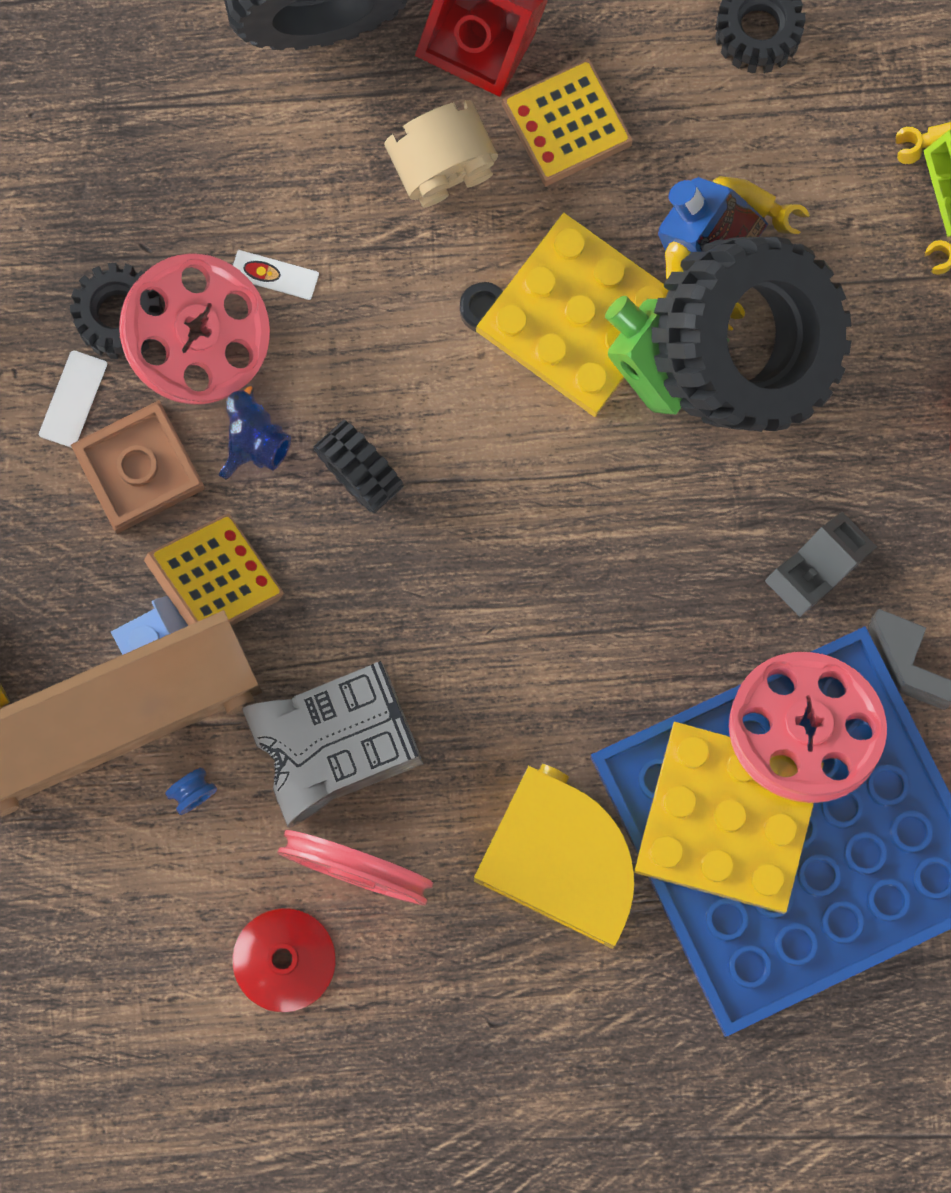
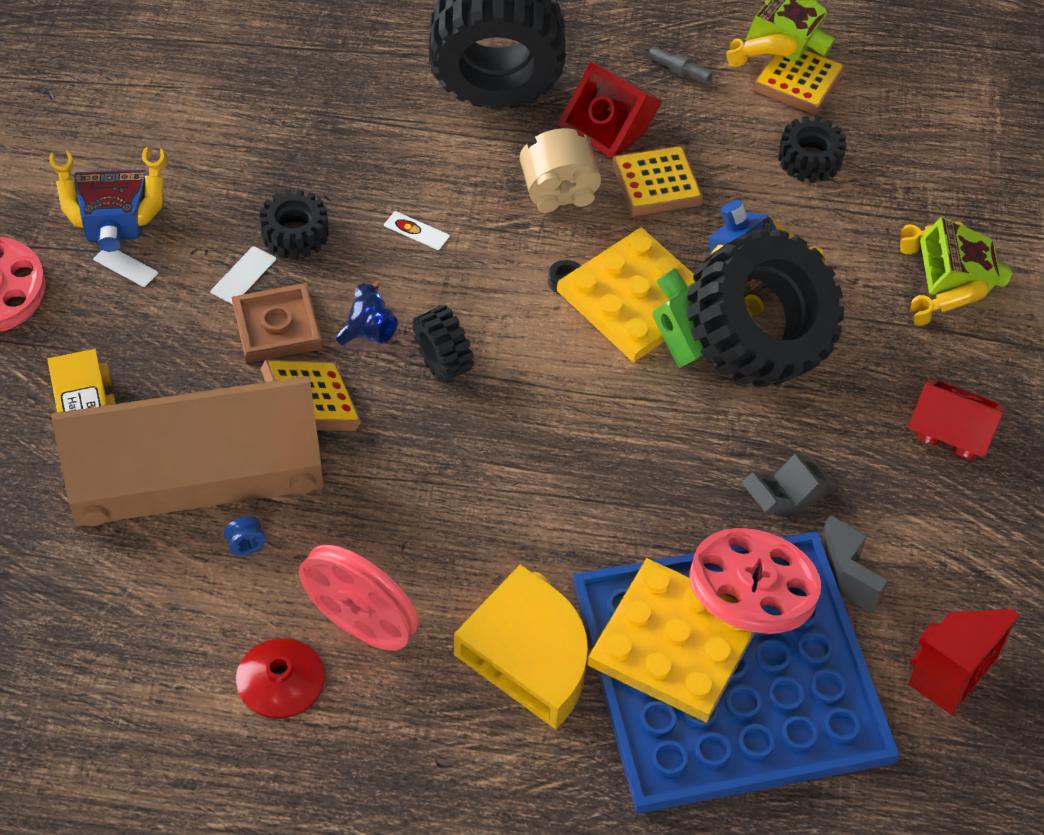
camera: 10 degrees right, 25 degrees down
(217, 325) = (345, 225): coral wedge -> none
(333, 740) = (374, 515): light grey piece -> none

